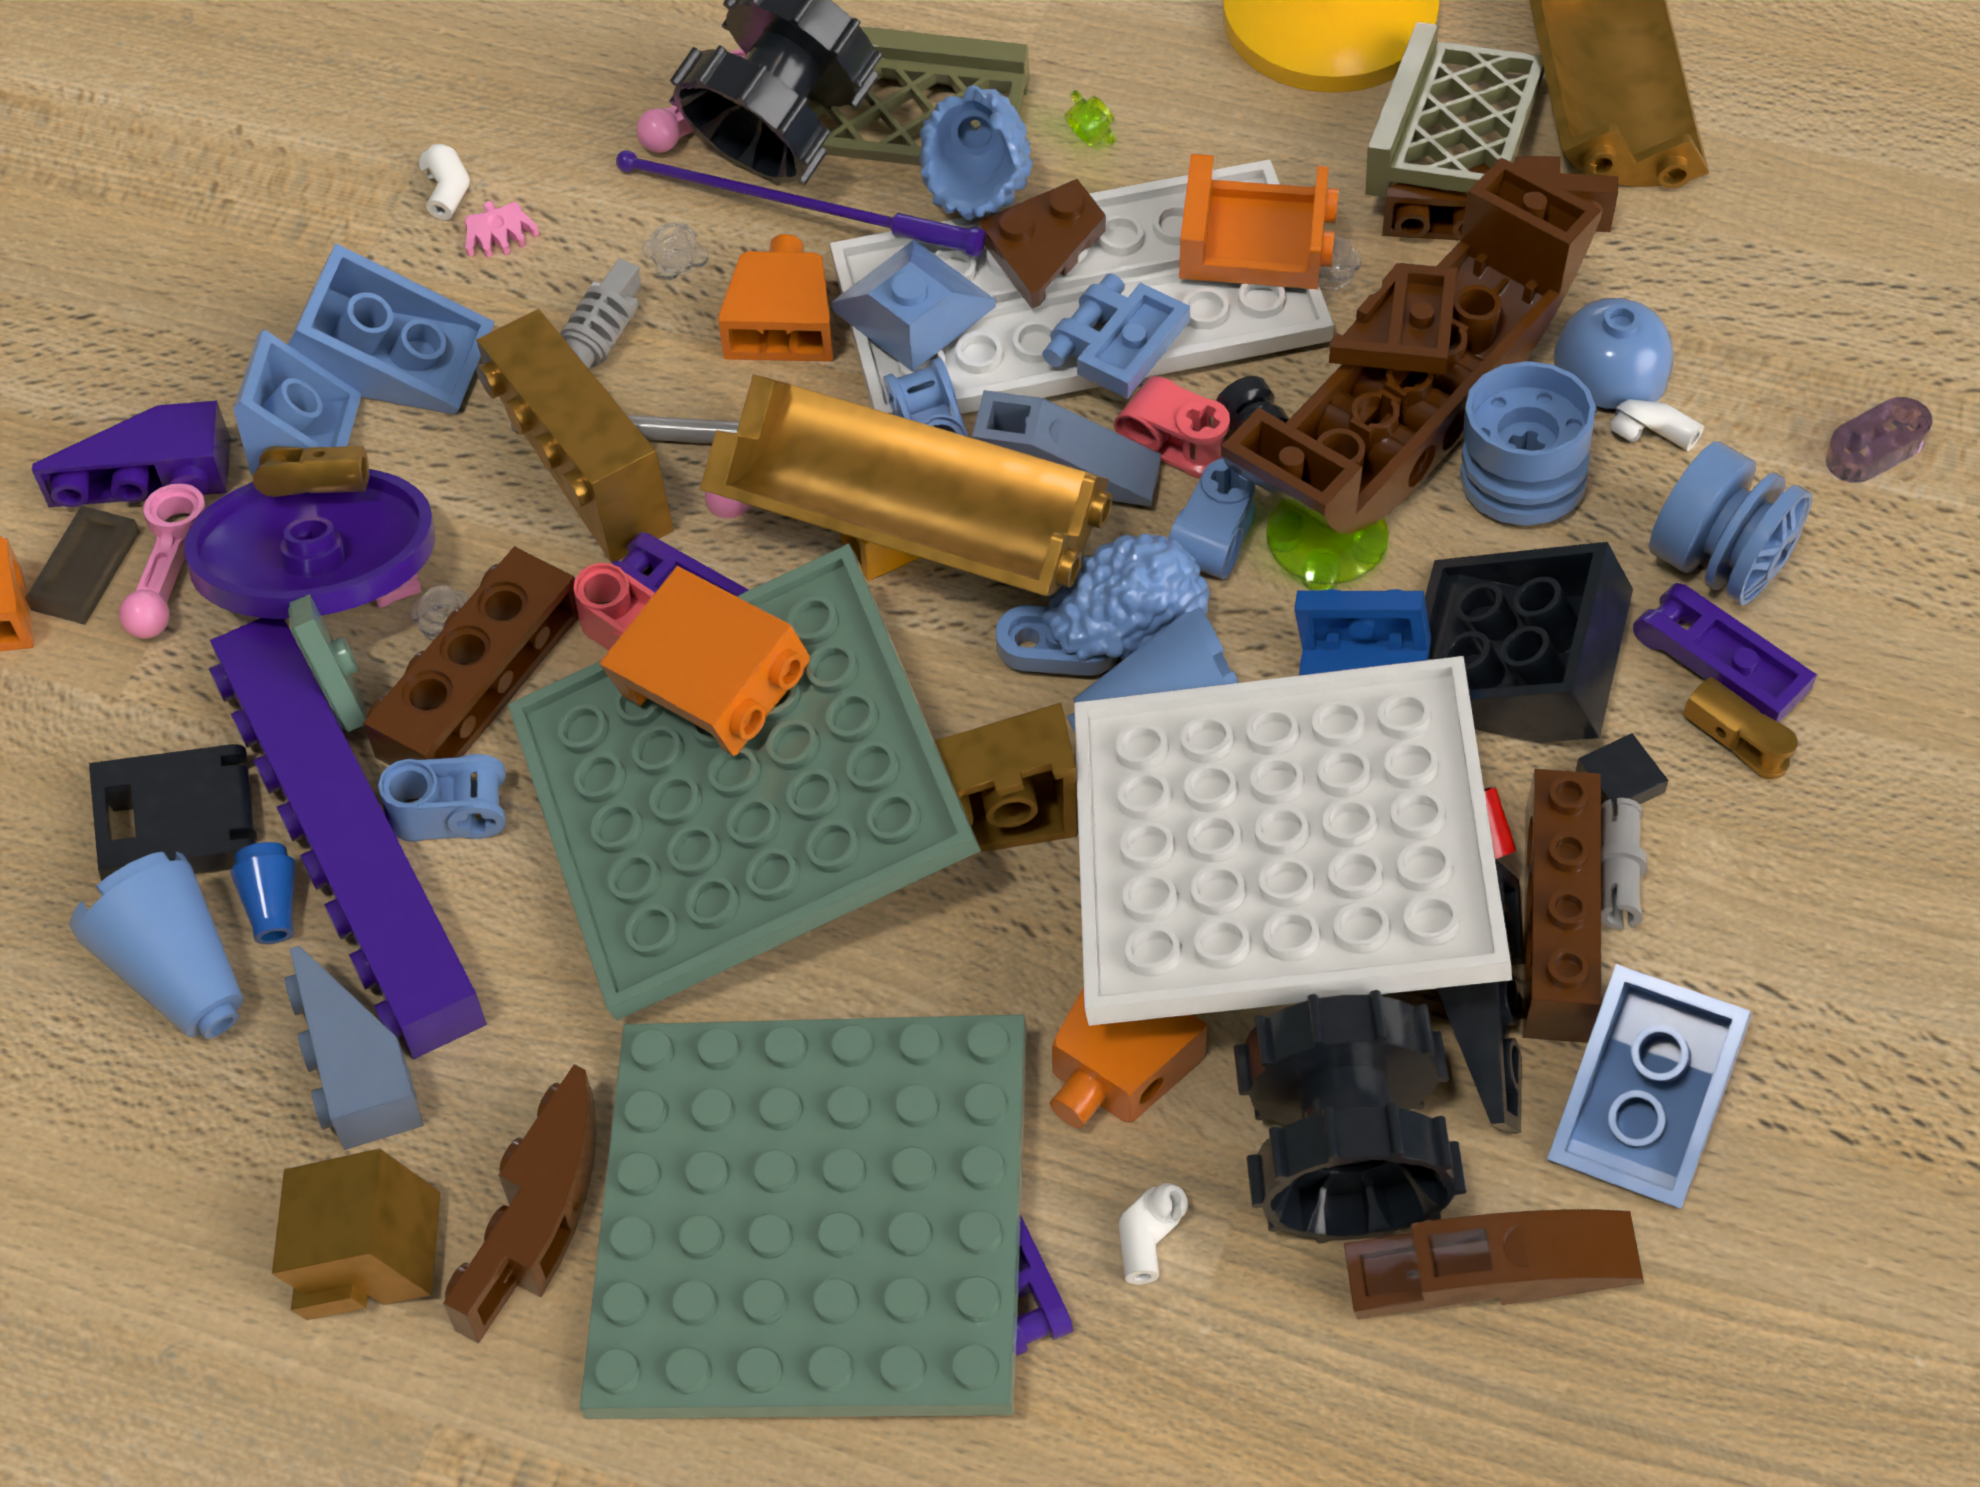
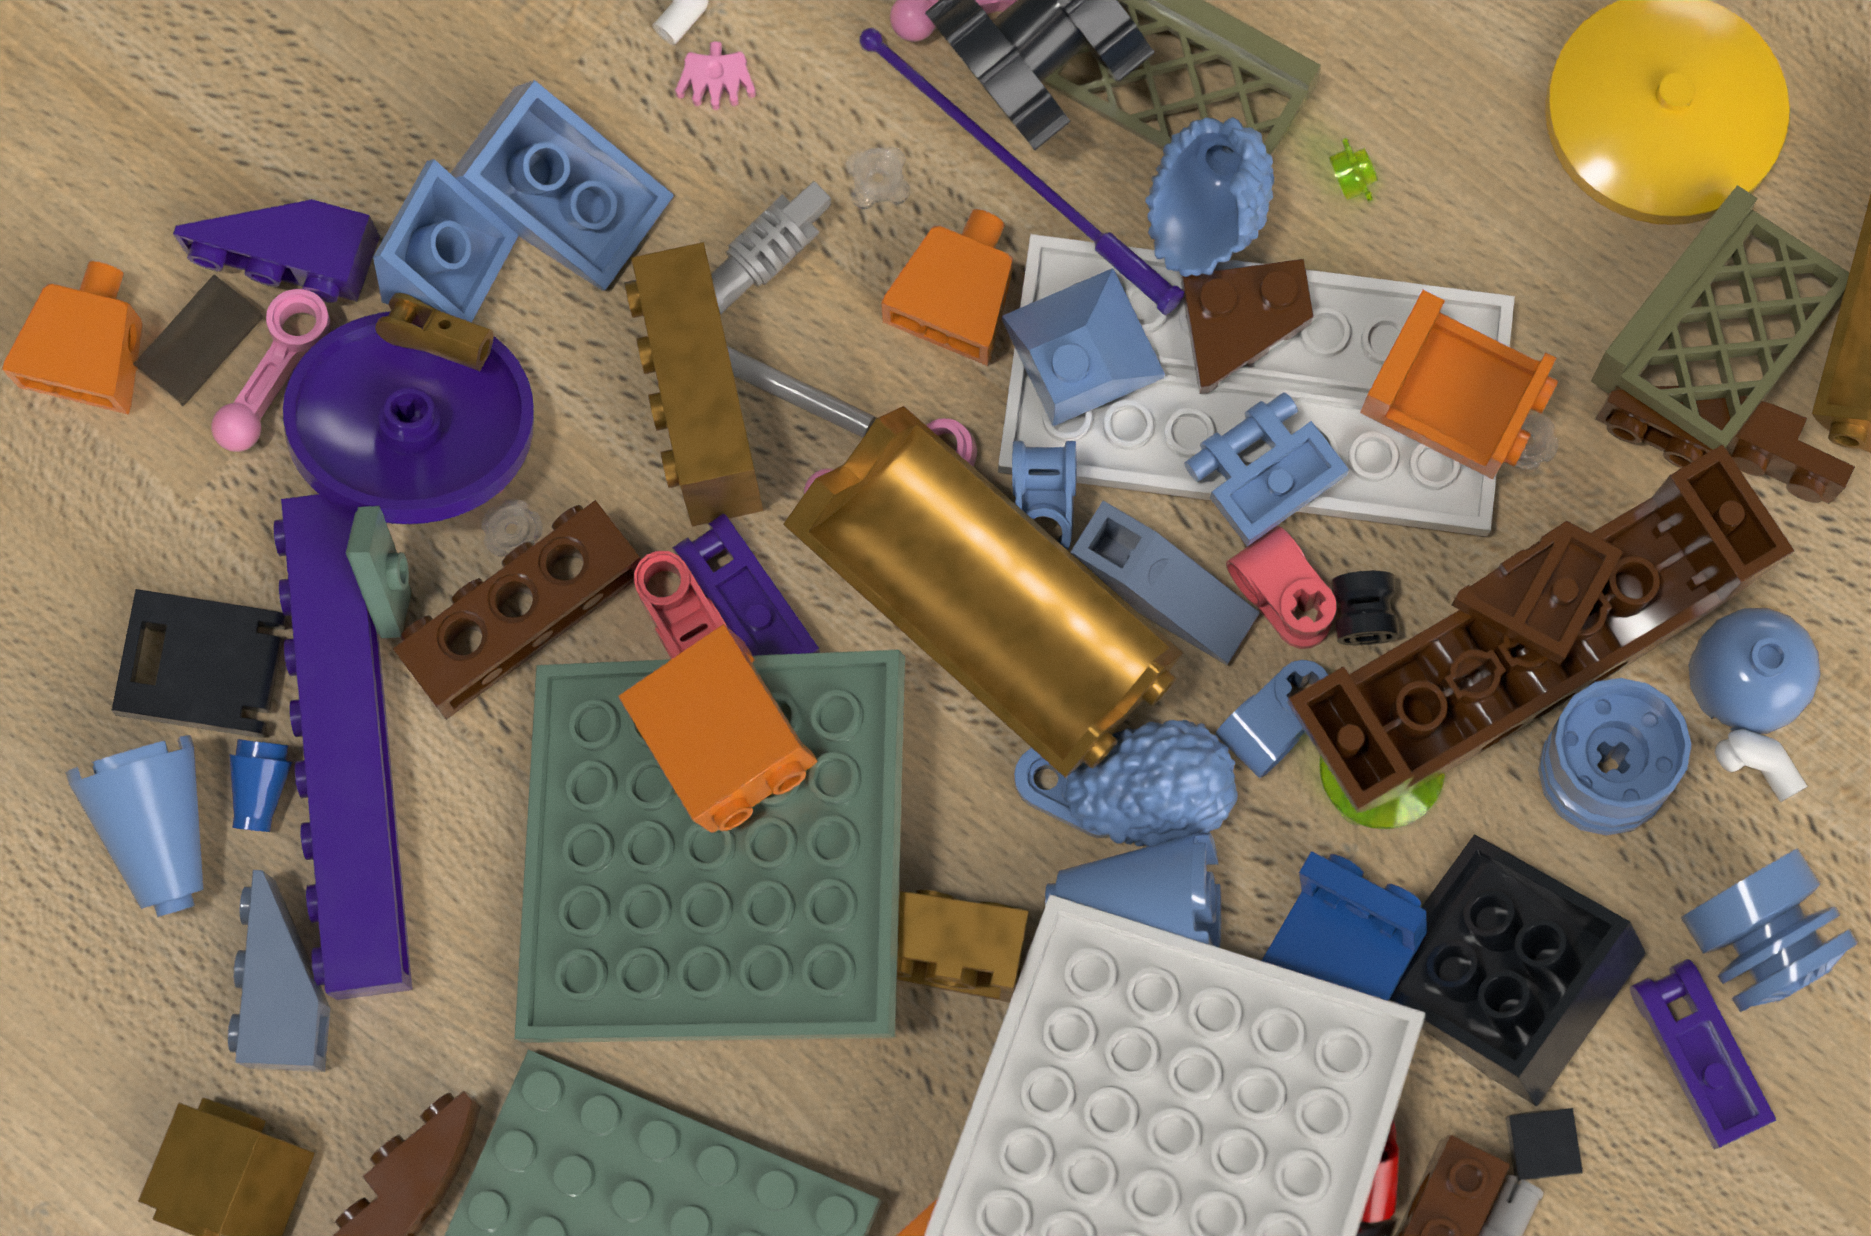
camera: 20 degrees right, 20 degrees up
(445, 796) = (451, 746): medium blue piece -> none
(1741, 727) = (1680, 1143): pearl gold bar -> none

